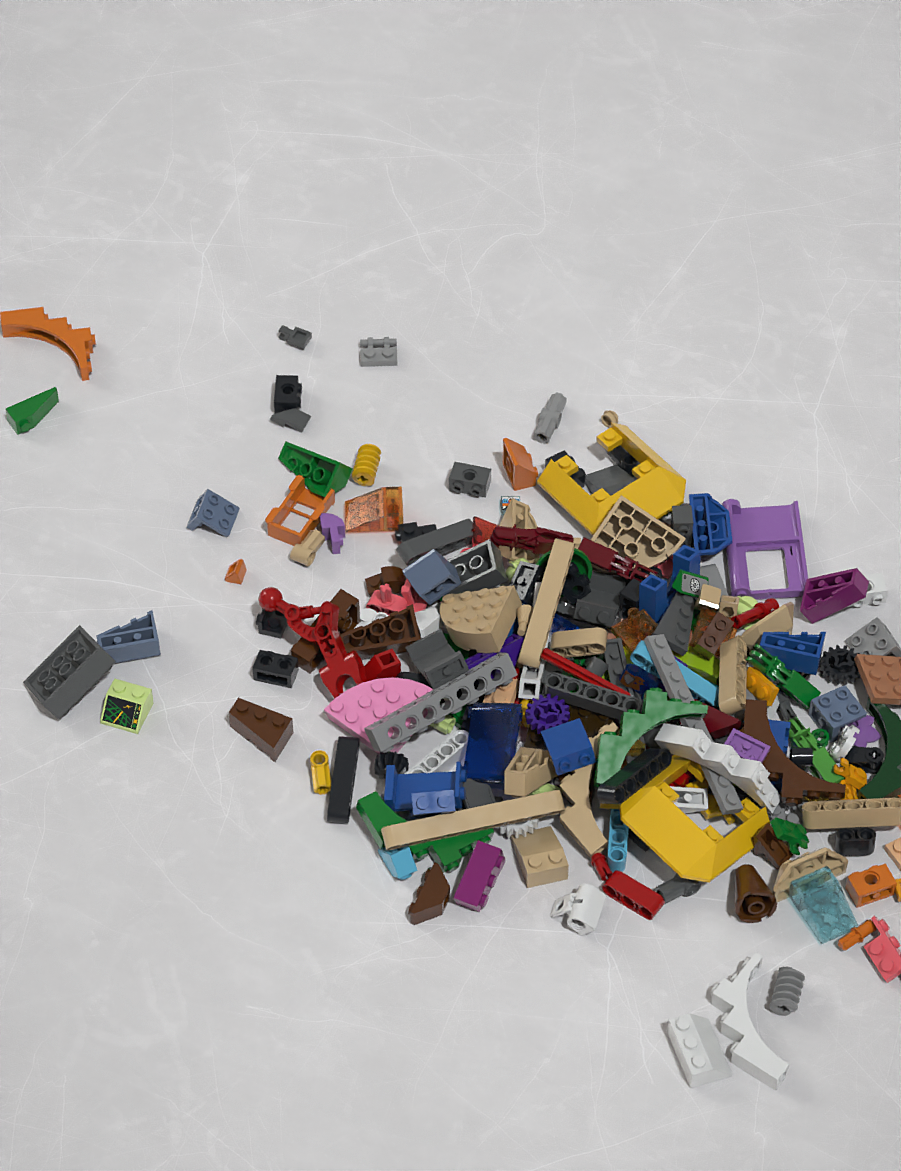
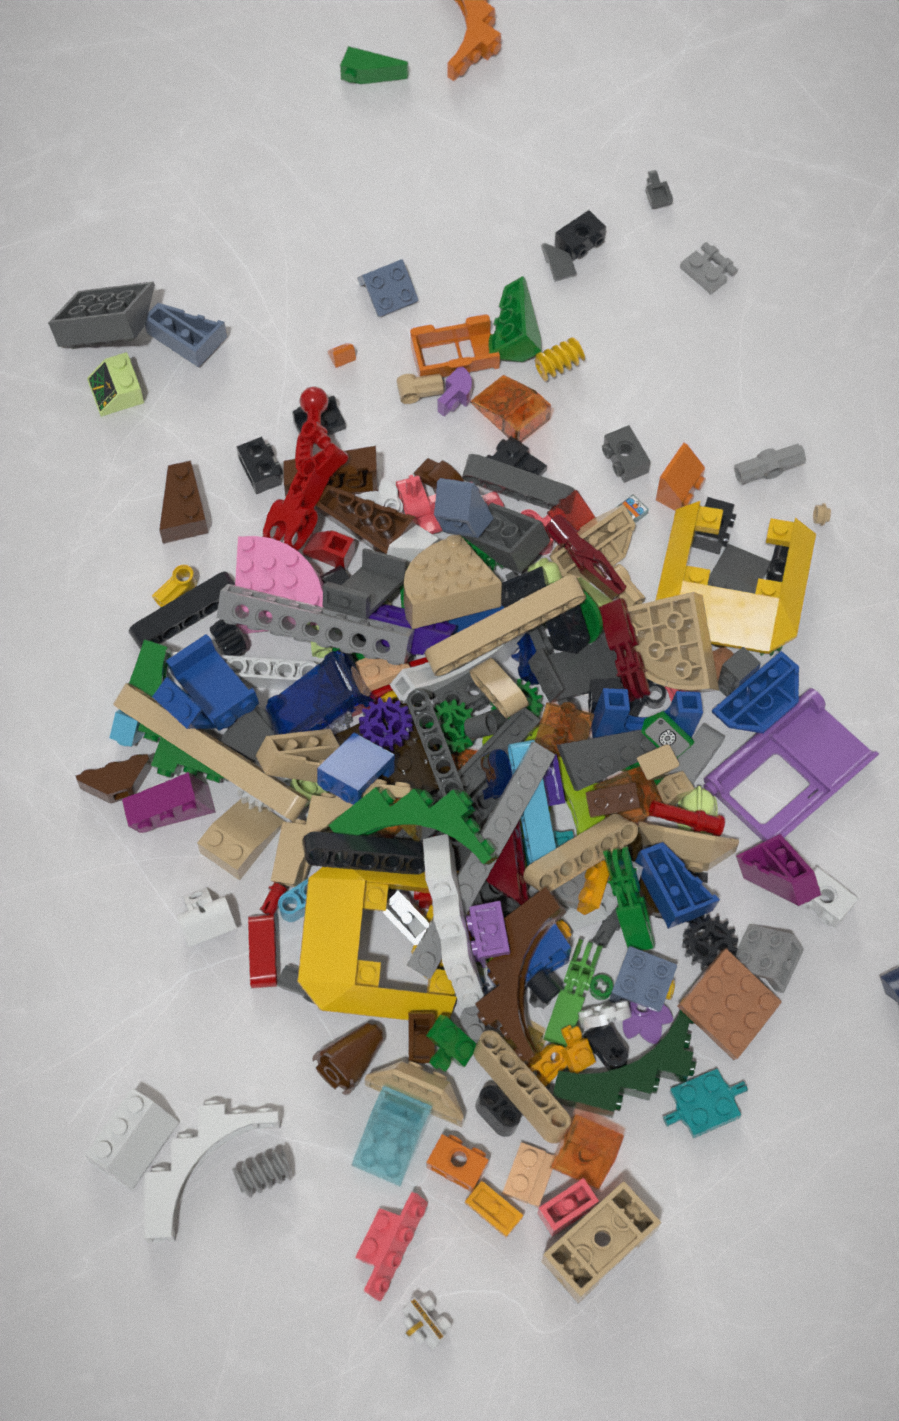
camera: 50 degrees right, 15 degrees up
(524, 615) = (481, 614): tan cone -> none
(578, 671) = (460, 722): red axle -> none
(856, 935) = (385, 1191): orange axle -> none

